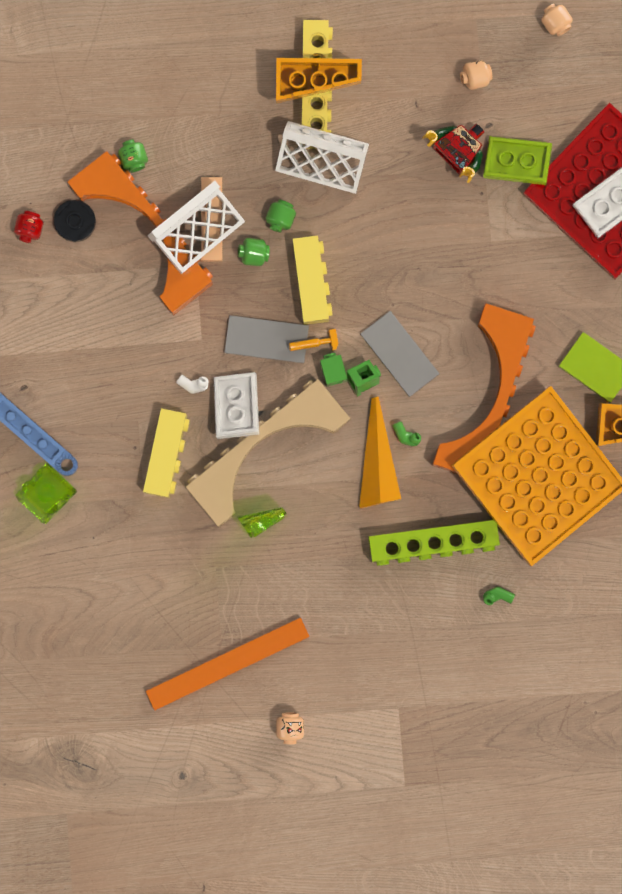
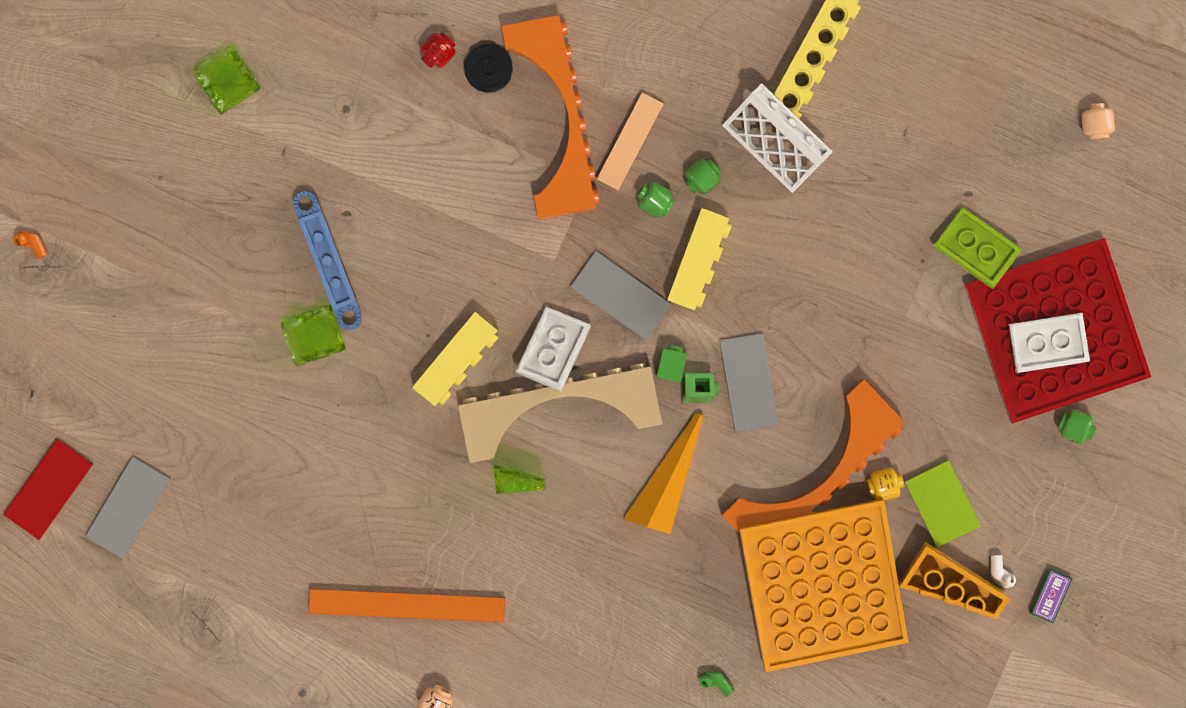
camera: 30 degrees right, 5 degrees up
(133, 156) = (583, 33): bright green head -> none
(185, 212) = (603, 123): white fence -> none
(193, 386) = (520, 304): white arm -> none
(313, 76) = (807, 50): light orange wedge -> none
(333, 340) = (669, 326): light orange piece -> none
(405, 437) = (709, 472): bright green arm -> none
(458, 148) = (923, 203): torso -> none
(476, 75) = (983, 135): light nougat head -> none
(487, 529) = (741, 609): lime brick -> none
(545, 375) = (885, 484): none -> yellow head

